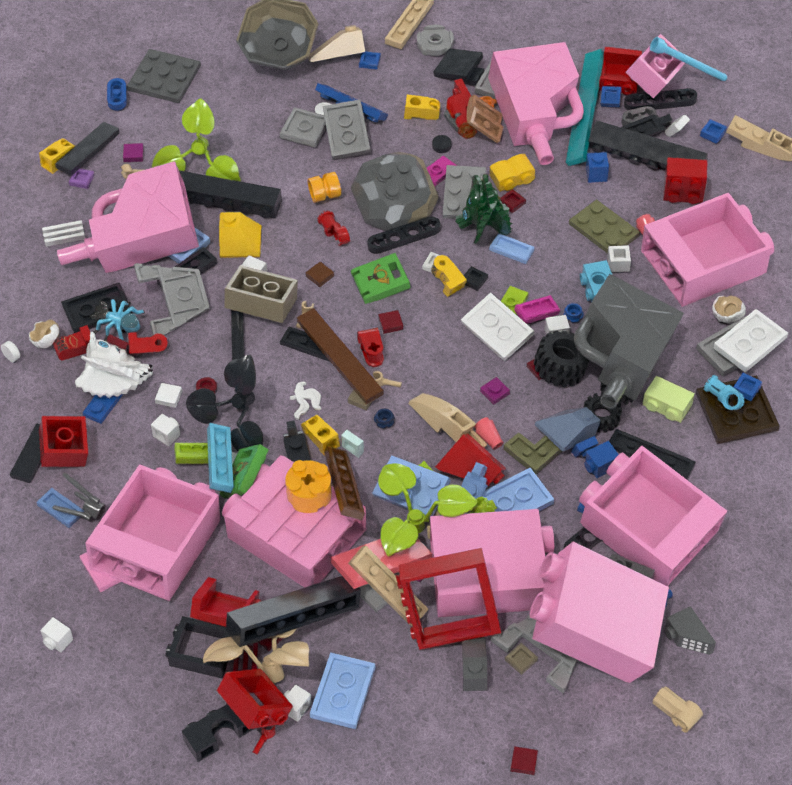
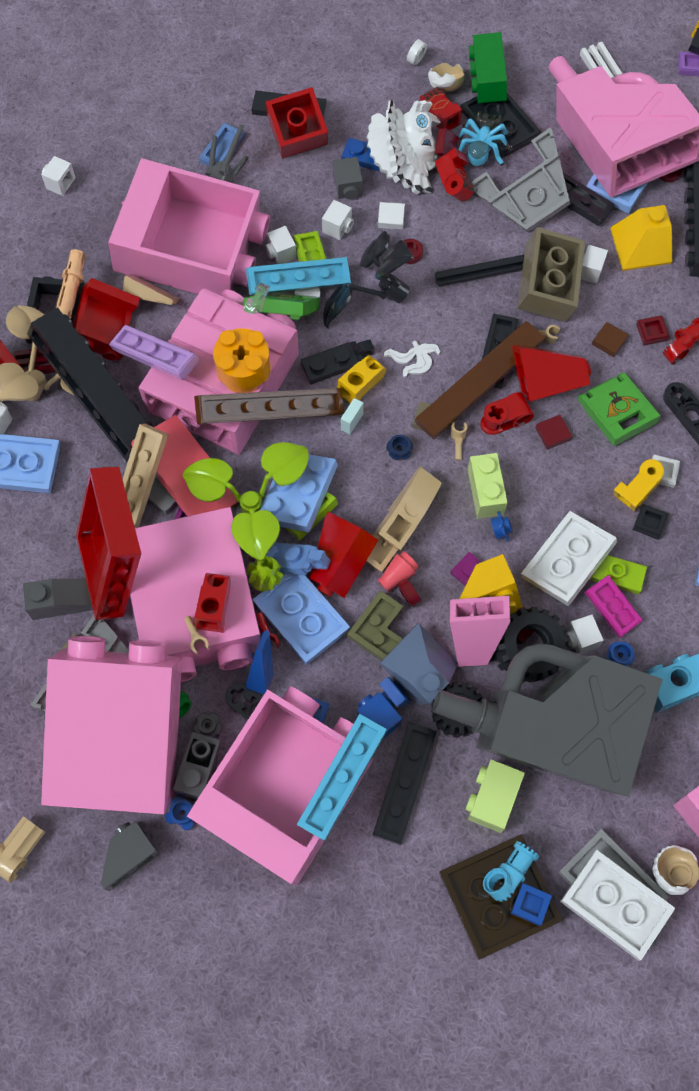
camera: 80 degrees right, 15 degrees up
(47, 302) = (488, 67): none -> green brick
(126, 417) = (347, 178): none -> dark grey brick
(165, 613) = (72, 277): none -> light nougat pin
(181, 469) = (281, 246): none -> white plate
(199, 575) = (147, 291): none -> tan slope
(249, 474) = (256, 304): none -> clear tile
(279, 554) = (154, 352): none -> lavender tile
(318, 247) = (652, 330): none -> dark red tile
(345, 311) = (548, 371): none -> red slope
(431, 365) = (487, 485): none -> yellowish green brick
(464, 364) = (501, 526): none -> blue plate
(508, 428) = (409, 593): none -> dark red tile
(512, 529) = (212, 603): none -> red leg
(520, 371) = (491, 580): none -> yellow slope
(540, 547) = (194, 634): none -> tan hand
(550, 378) = (478, 627): none -> bright pink slope
(553, 517) = (262, 666): none -> blue slope
(659, 461) = (342, 777): none -> medium azure plate

